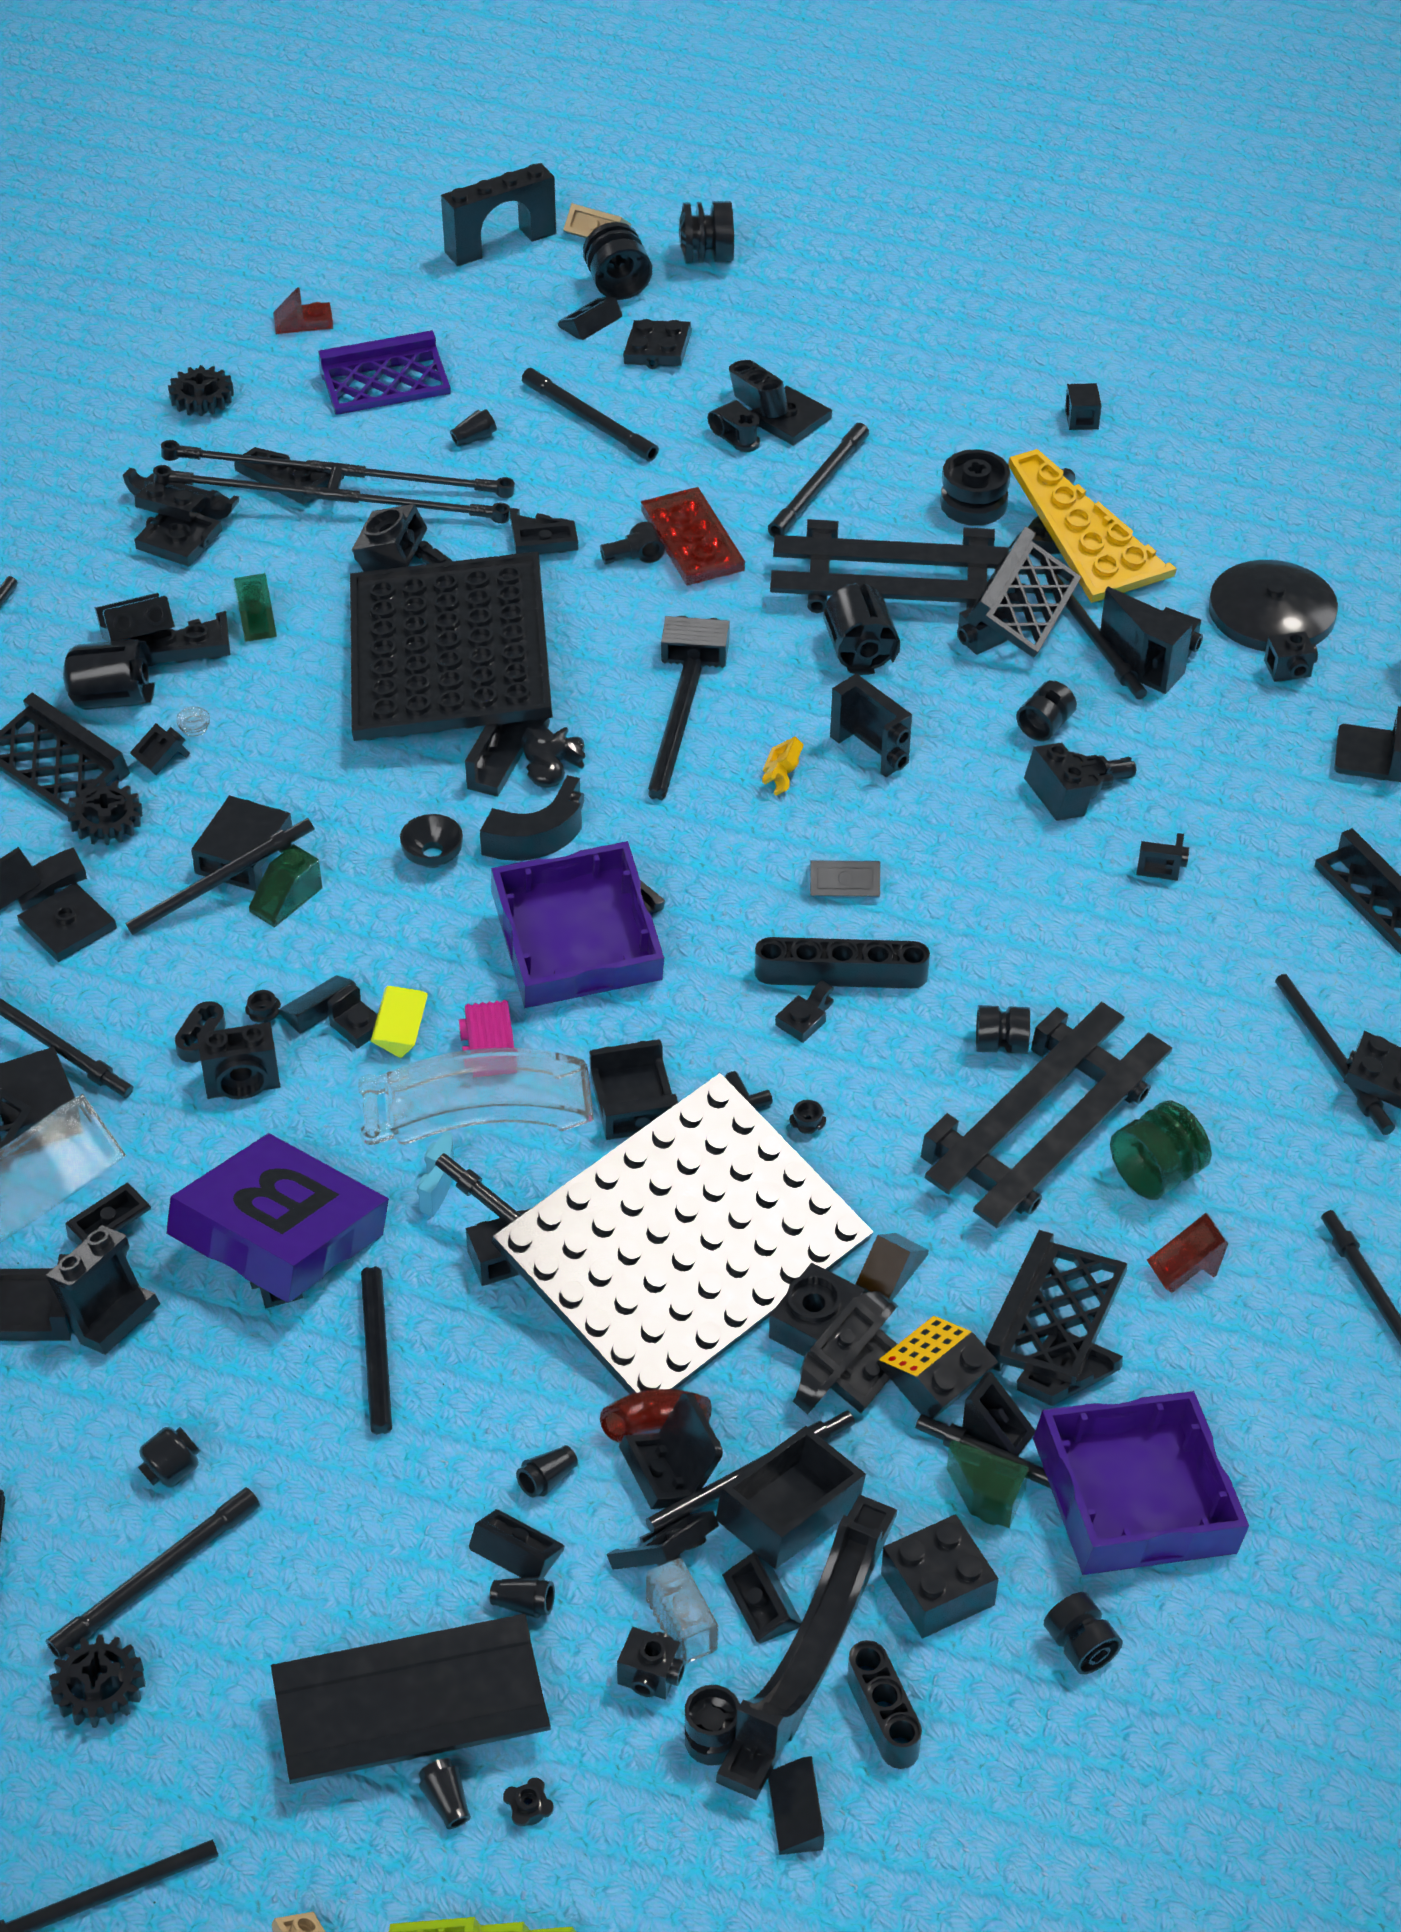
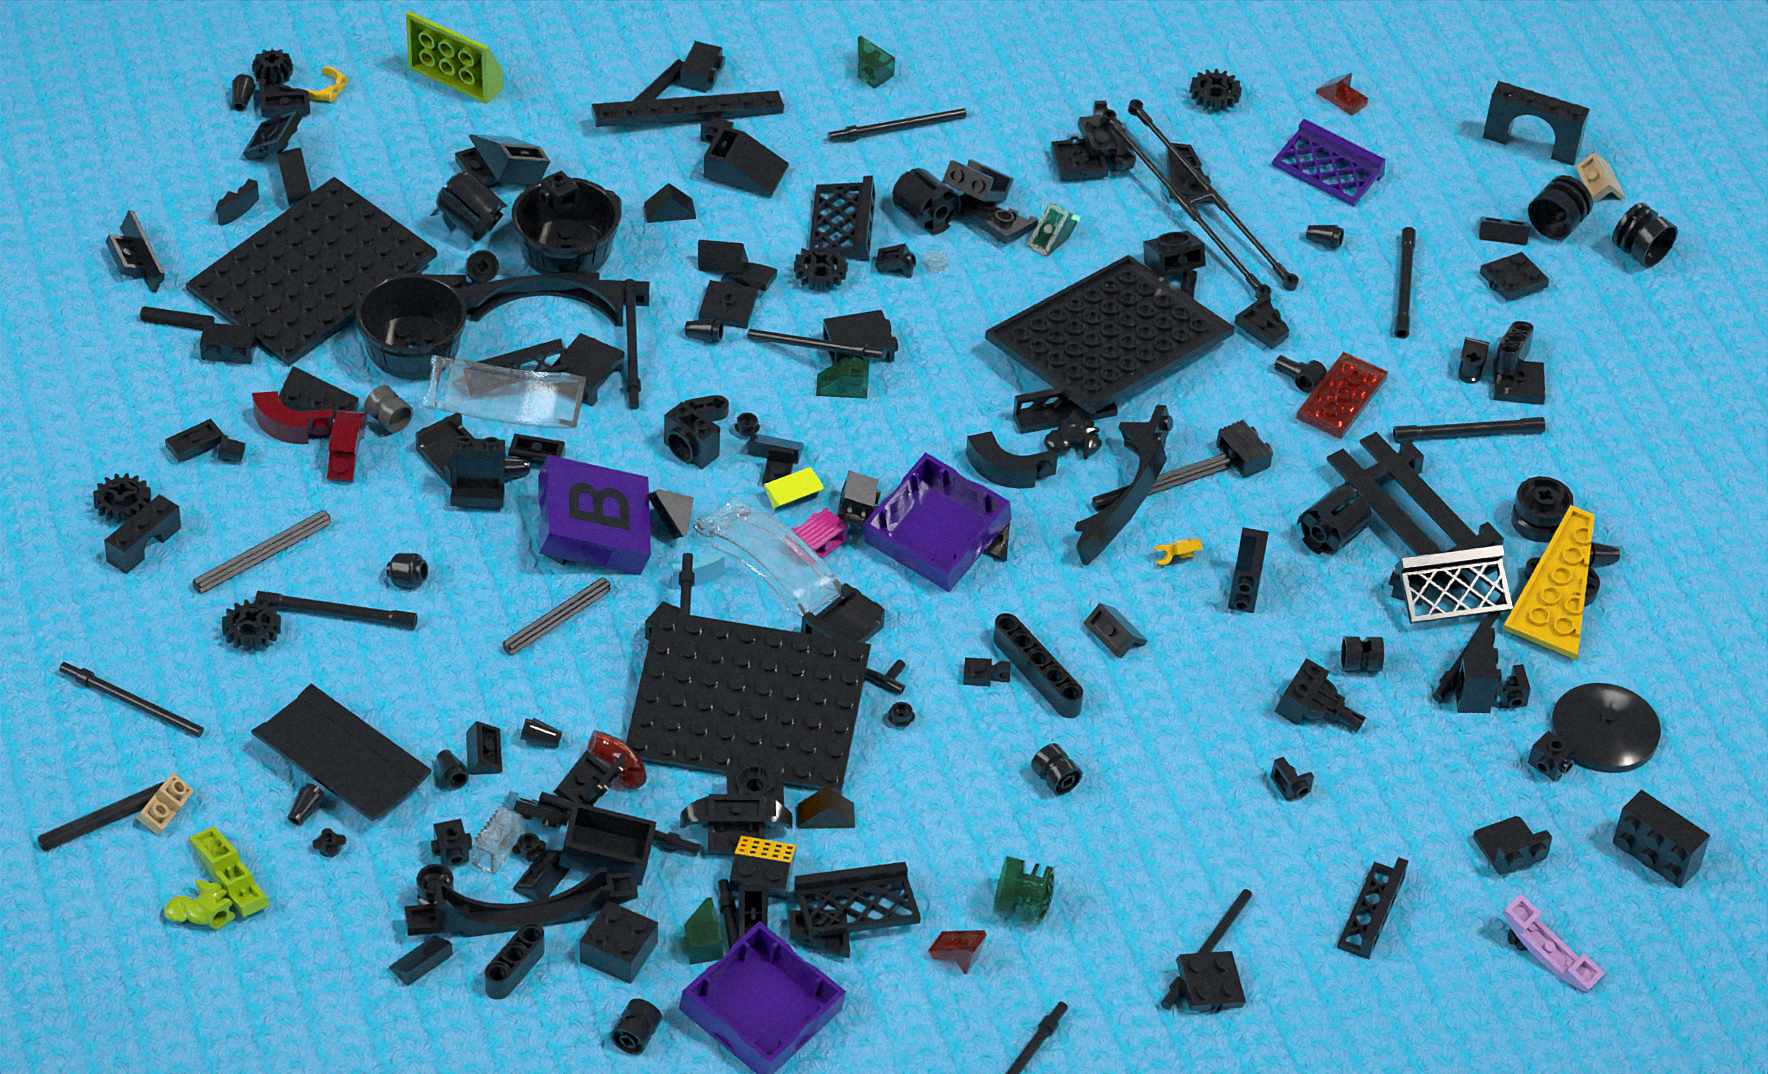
camera: 50 degrees right, 0 degrees up
(86, 961) = (705, 329): none -> black cone
(342, 1142) = (673, 510): none -> slope
(431, 832) = (943, 415): black piece -> none
(480, 972) = (858, 499): none -> brick
(629, 704) = (1148, 443): none -> black slope
(717, 1576) = (529, 846): none -> black plate
(1069, 1050) = (1075, 807): black fence -> none
(1083, 406) = (1696, 525): black brick -> none

